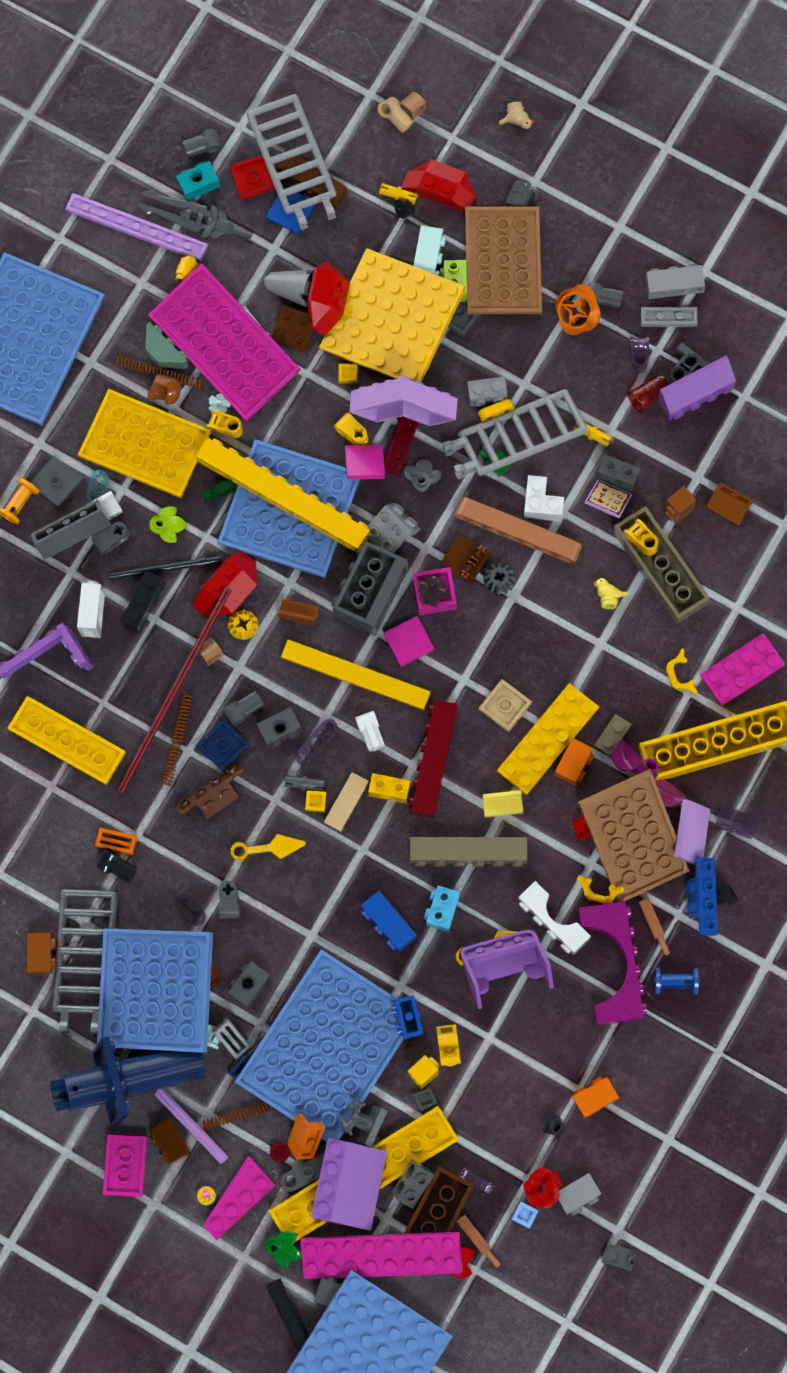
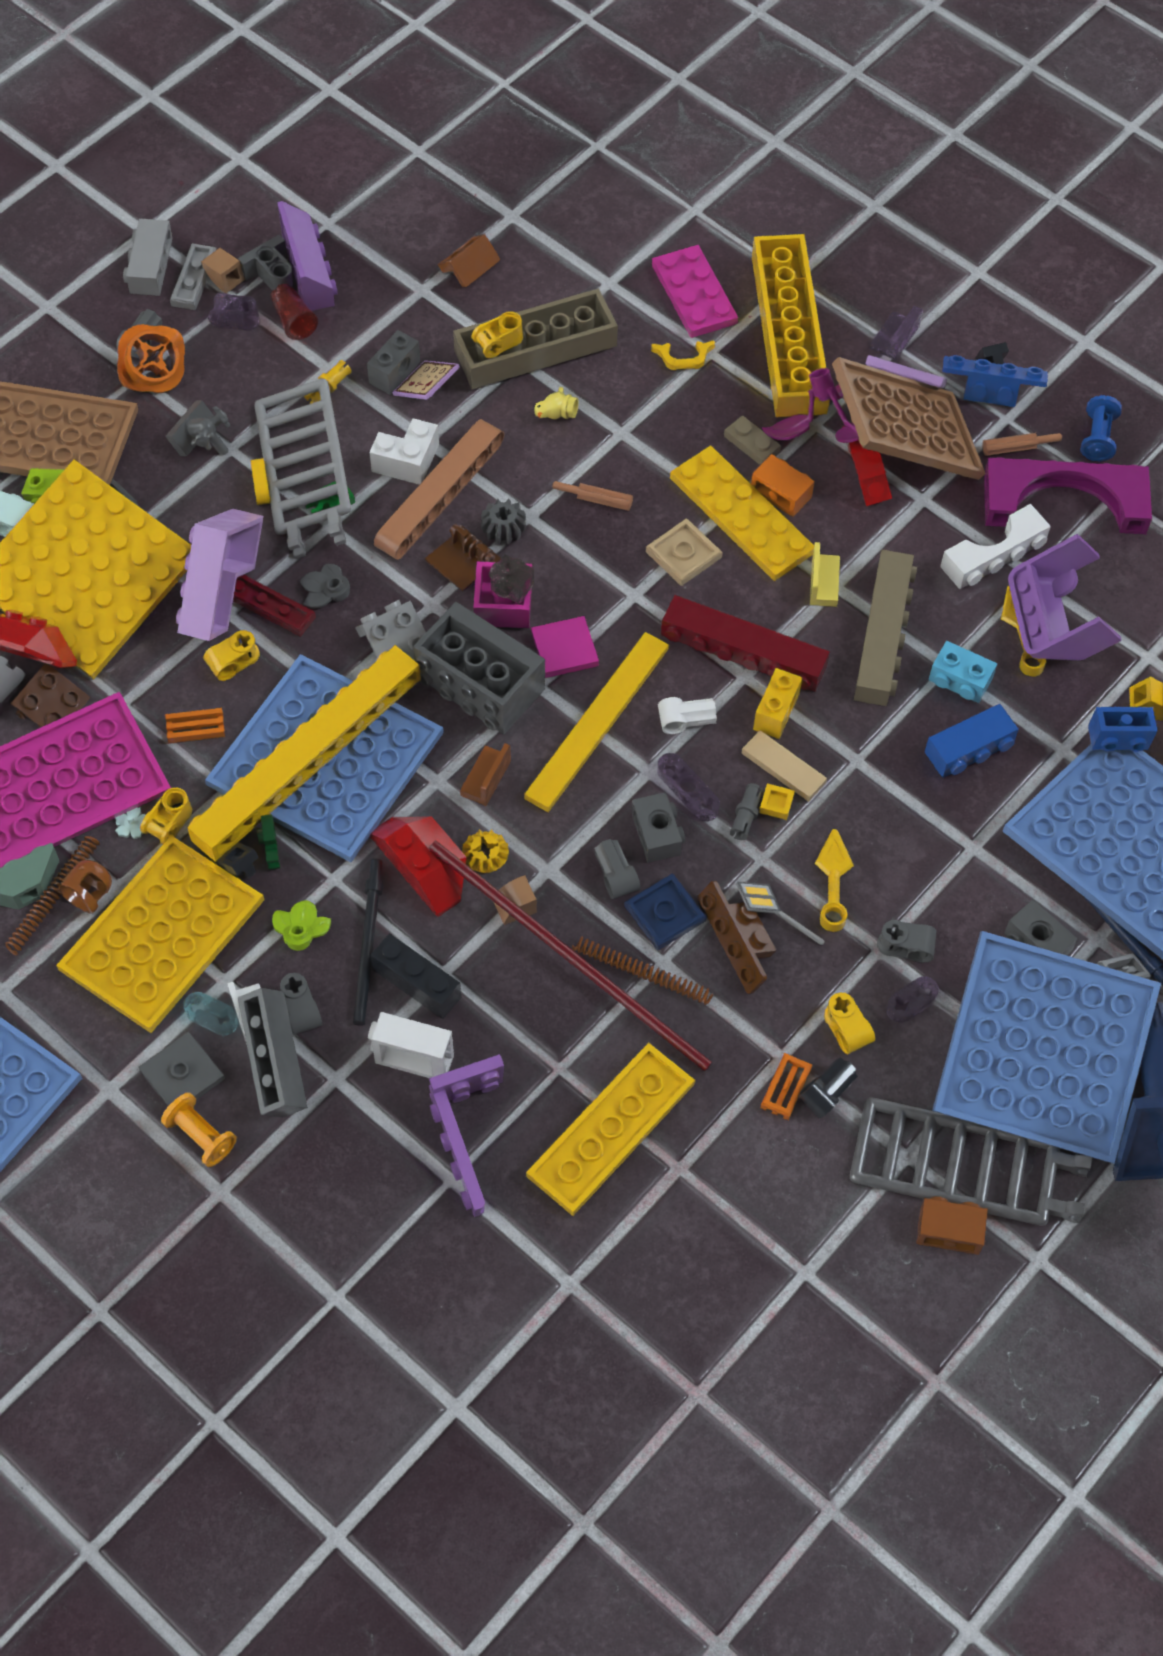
camera: 85 degrees left, 15 degrees down
(160, 874) = (851, 1027): none -> yellow piece
(200, 475) = (239, 860): none -> black tile
(240, 802) = (761, 899): none -> piece
(292, 408) = (195, 721): none -> orange tile
(348, 373) = (142, 650): yellow tile -> none
(364, 462) = (286, 646): dark pink tile -> none
(487, 391) = (230, 482): light grey brick -> none
(527, 357) = (199, 429): none -> dark grey piece
(539, 632) = (597, 495): none -> nougat axle
(595, 897) = (979, 485): yellow helmet -> none
(675, 335) = (223, 270): none -> medium nougat brick
(679, 505) = (460, 299): dark orange brick -> none

